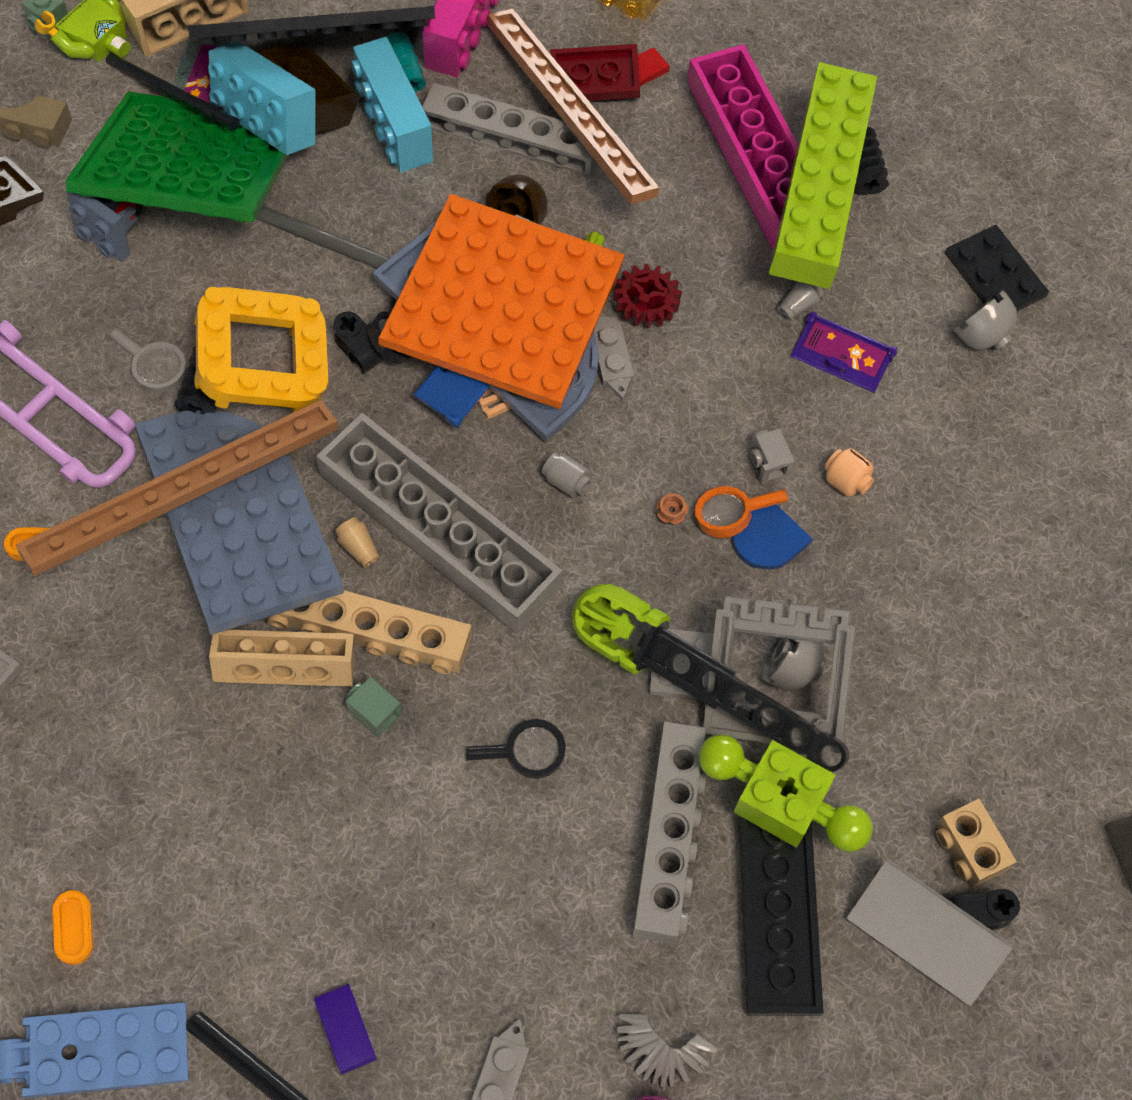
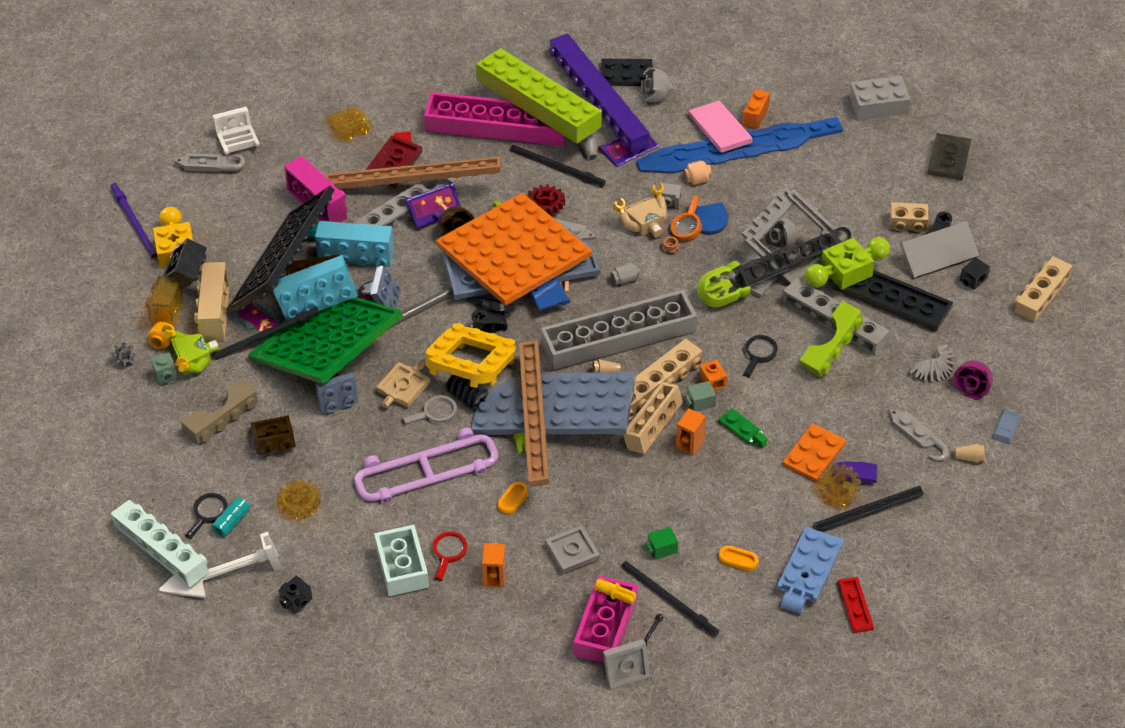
camera: 55 degrees left, 15 degrees down
(39, 796) = (662, 543): none -> green brick
(170, 296) = (403, 384): none -> tan plate
(277, 727) = (690, 431): none -> orange brick
(293, 1016) = (840, 476): none -> clear yellow gear
(324, 185) = (381, 289): none -> sand blue plate
(349, 802) = (743, 428): none -> green hinge
(357, 940) = (814, 452): none -> orange plate
(428, 703) = (714, 373): none -> orange brick
(536, 156) = (431, 203): none -> door
(642, 854) = (819, 358): none -> lime arch
(704, 442) = (646, 215): none -> tan torso
(738, 326) = (586, 176): none -> black bar
(913, 258) = (599, 93): none -> dark purple brick
(915, 1019) = (974, 273): none -> black brick
(960, 506) = (765, 140): none -> blue plate
(972, 456) = (720, 126): none -> bright pink tile
(1048, 487) = (756, 108): none -> orange brick

